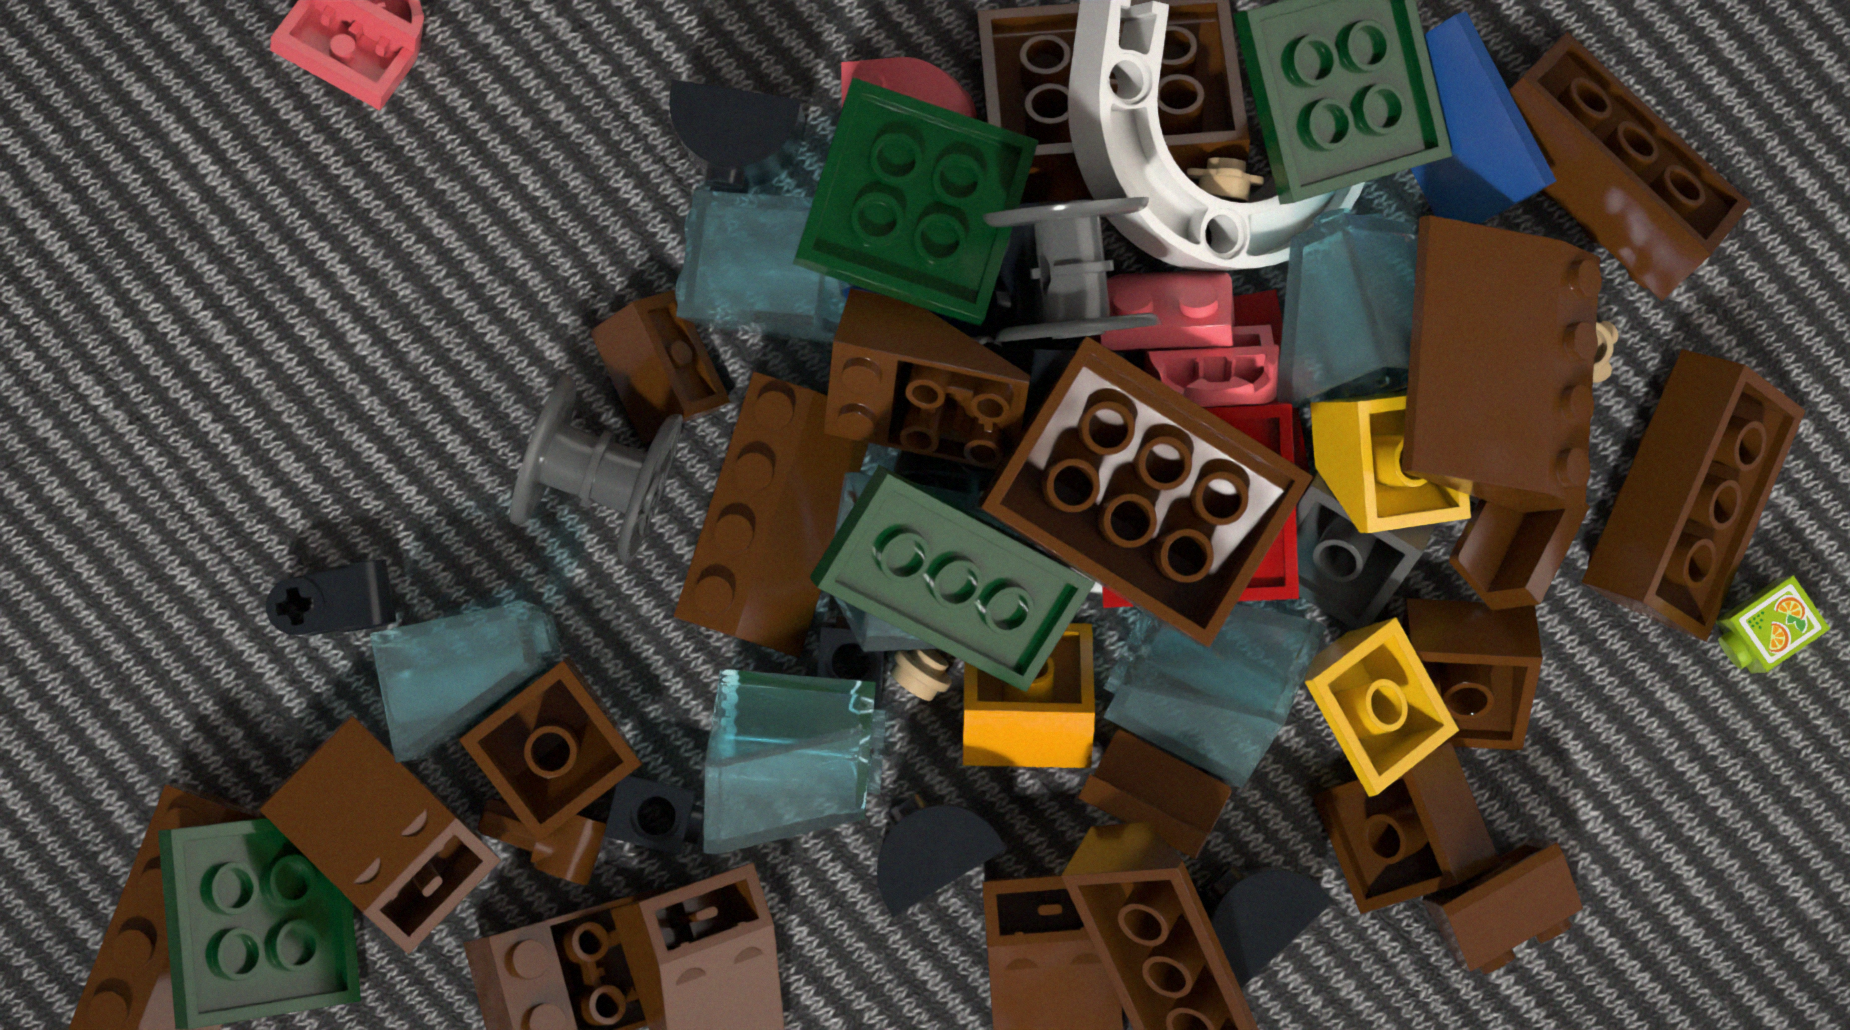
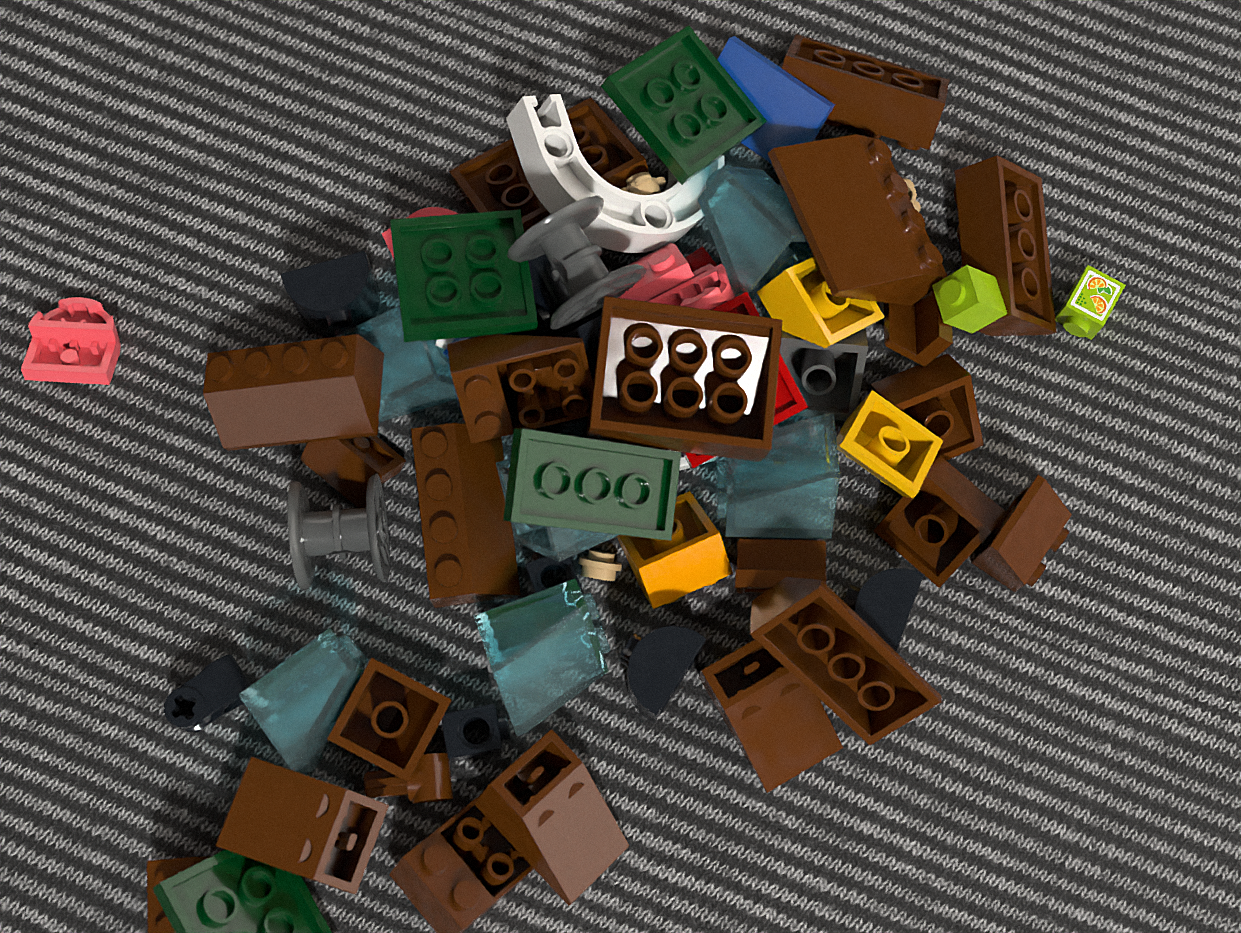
camera: 30 degrees left, 10 degrees down
(620, 249) = (295, 392): none -> reddish brown slope
(1597, 552) = (969, 299): none -> lime brick

